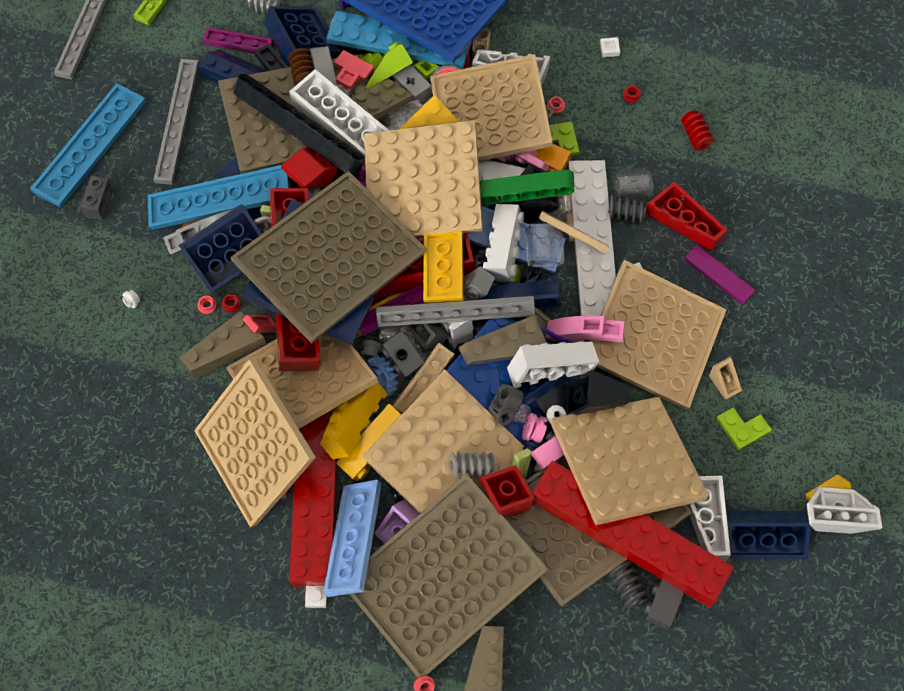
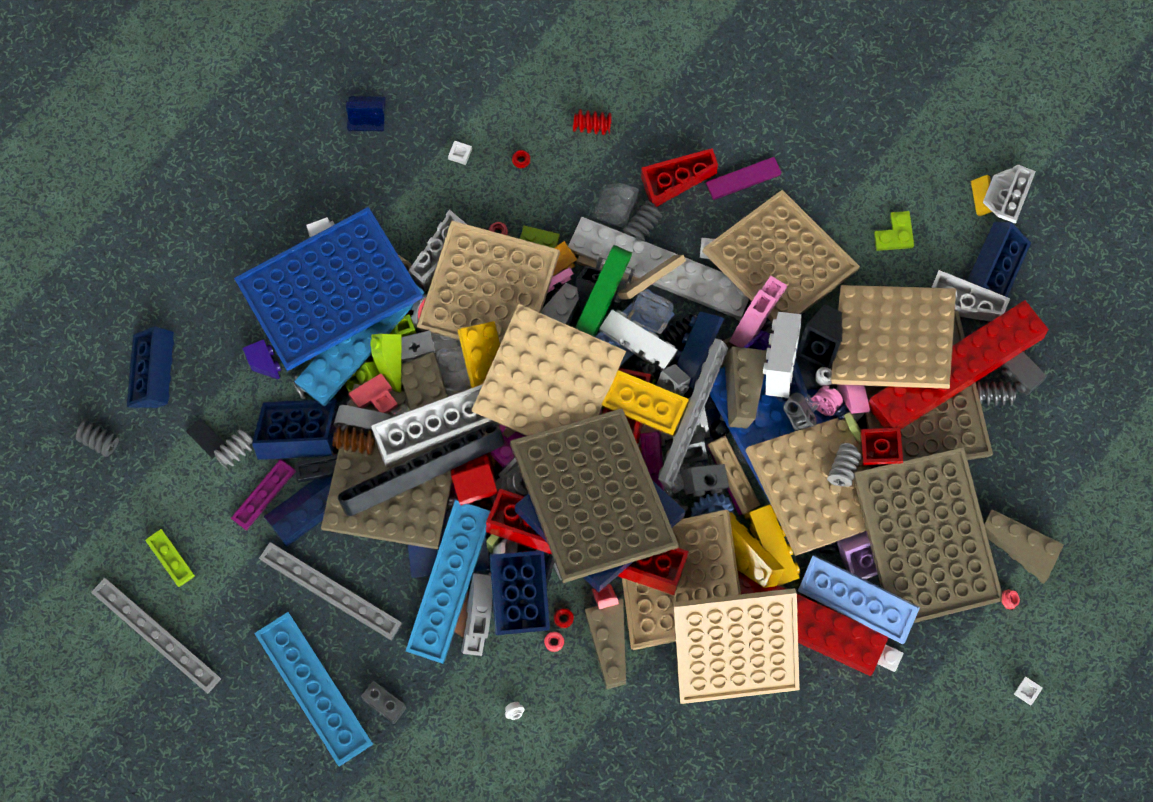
camera: 65 degrees left, 5 degrees up
(725, 378) = (846, 223): tan slope -> none

